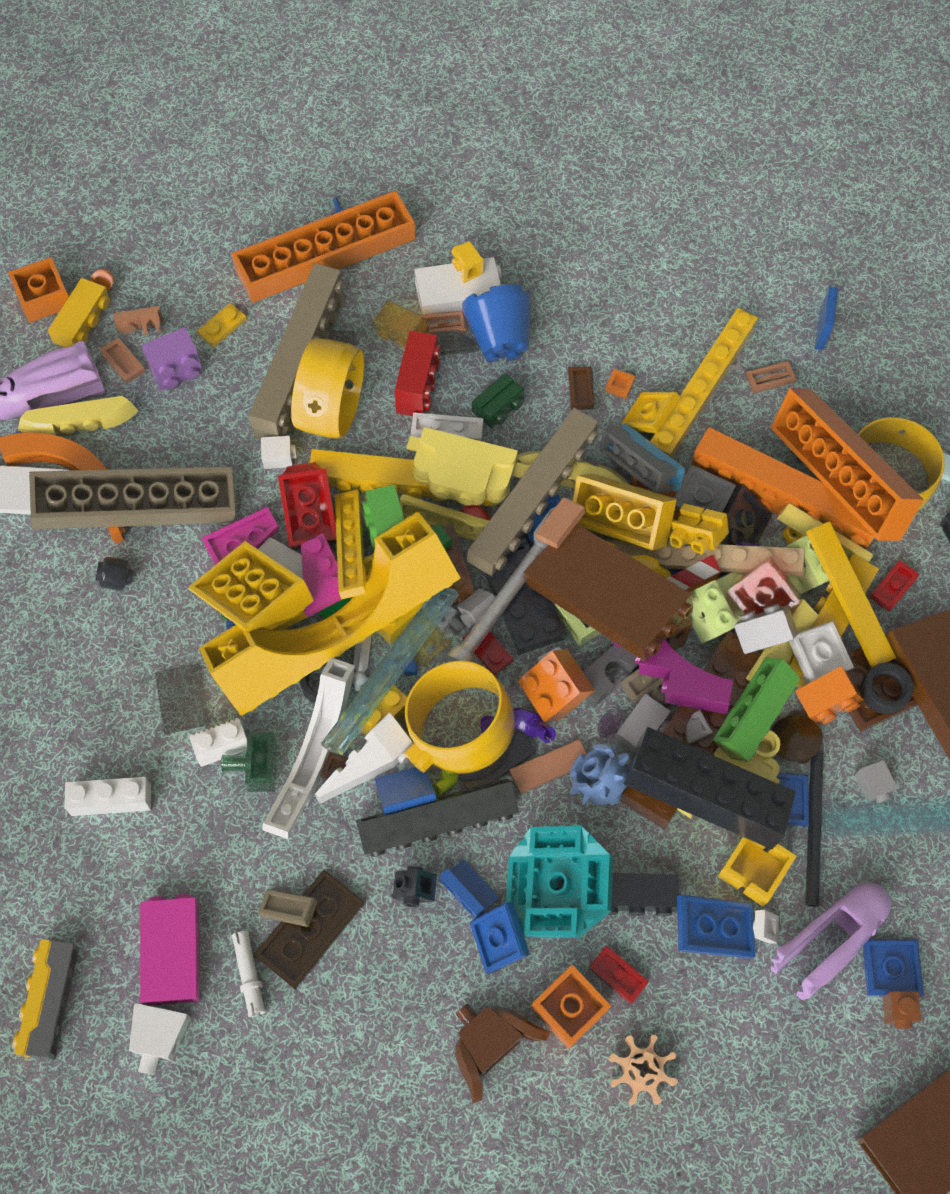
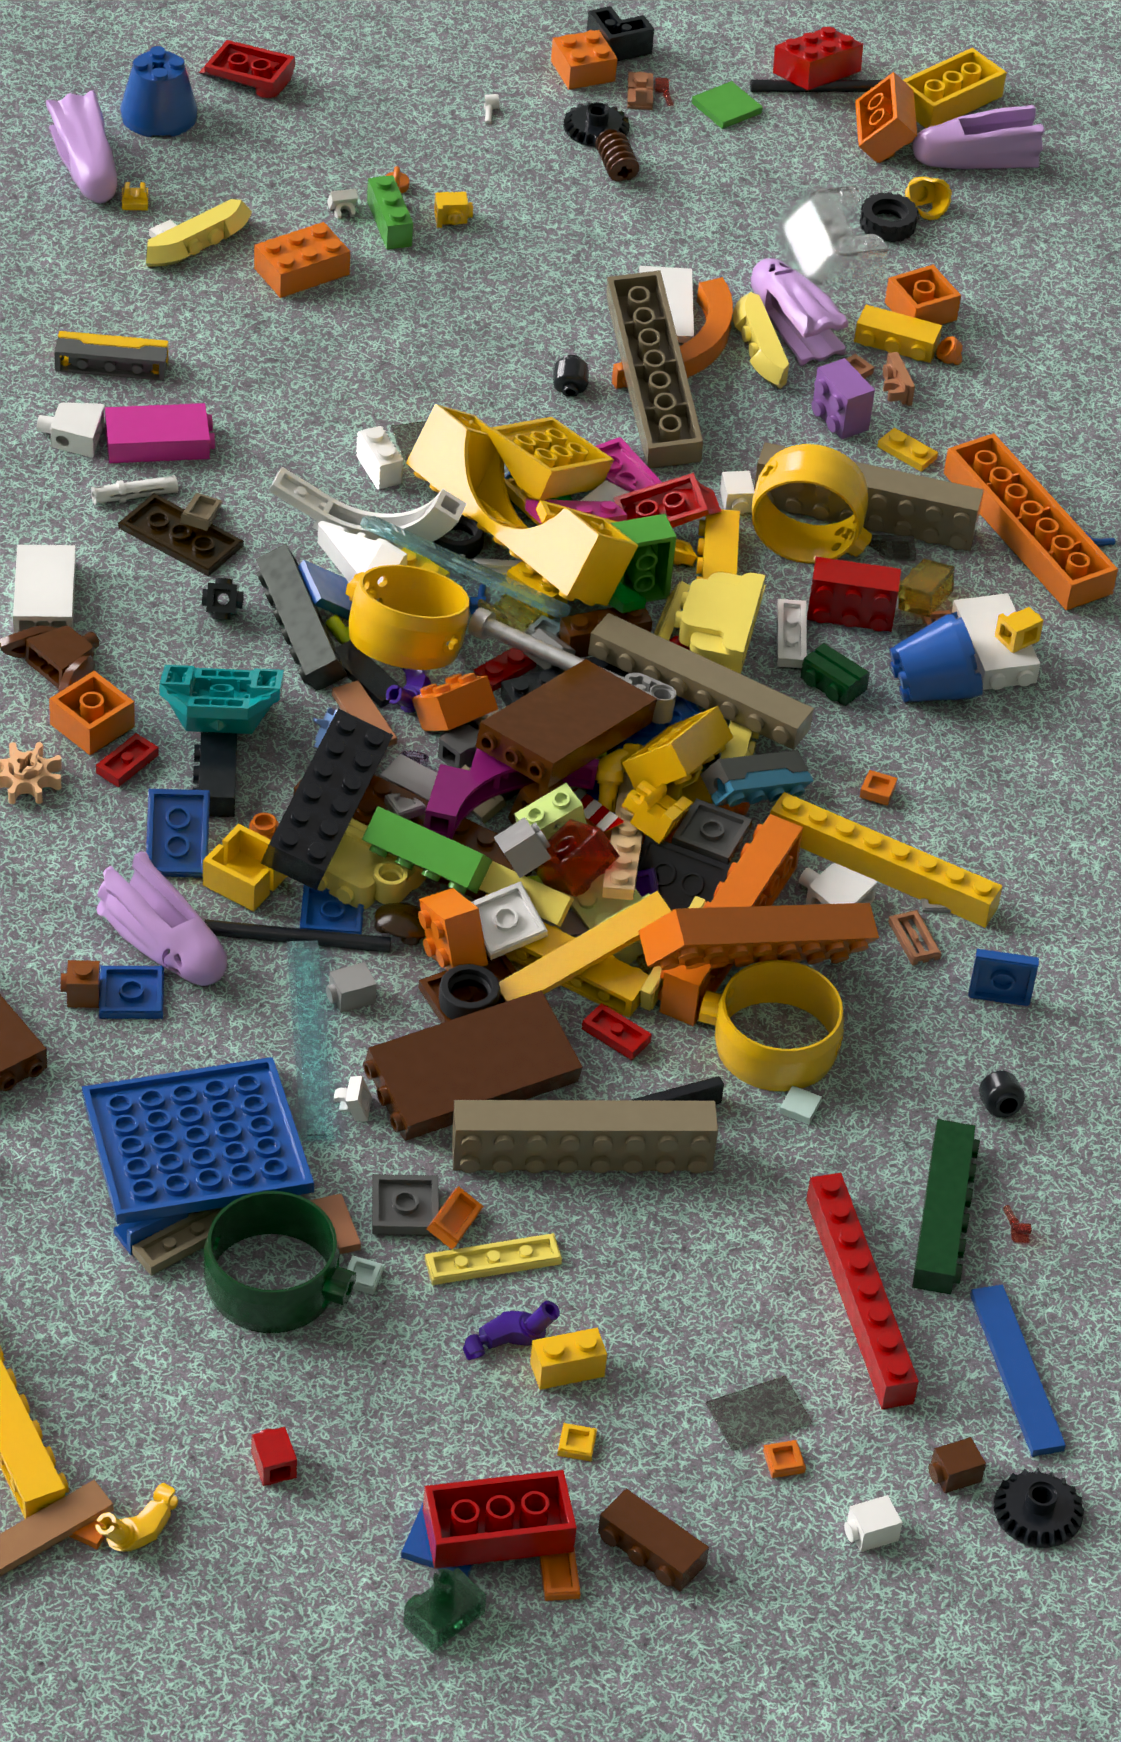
camera: 85 degrees right, 20 degrees down
(107, 796) = (317, 382): white brick -> none
(257, 762) = (358, 482): clear green brick -> none
(393, 1059) = (44, 586): none -> white brick
(468, 888) = (221, 644): blue panel -> none
(499, 938) = (166, 658): blue tile -> none
(560, 523) = (650, 686): nougat tile -> none
(580, 388) = (869, 755): reddish brown tile -> none
(651, 411) = (834, 803): yellow tile -> none
(691, 853) = (264, 824): none -> orange plate
(742, 418) = (837, 886): none -> white torso
(766, 926) = (181, 877): white plate -> none
(925, 336) = (1001, 1094): none -> black head

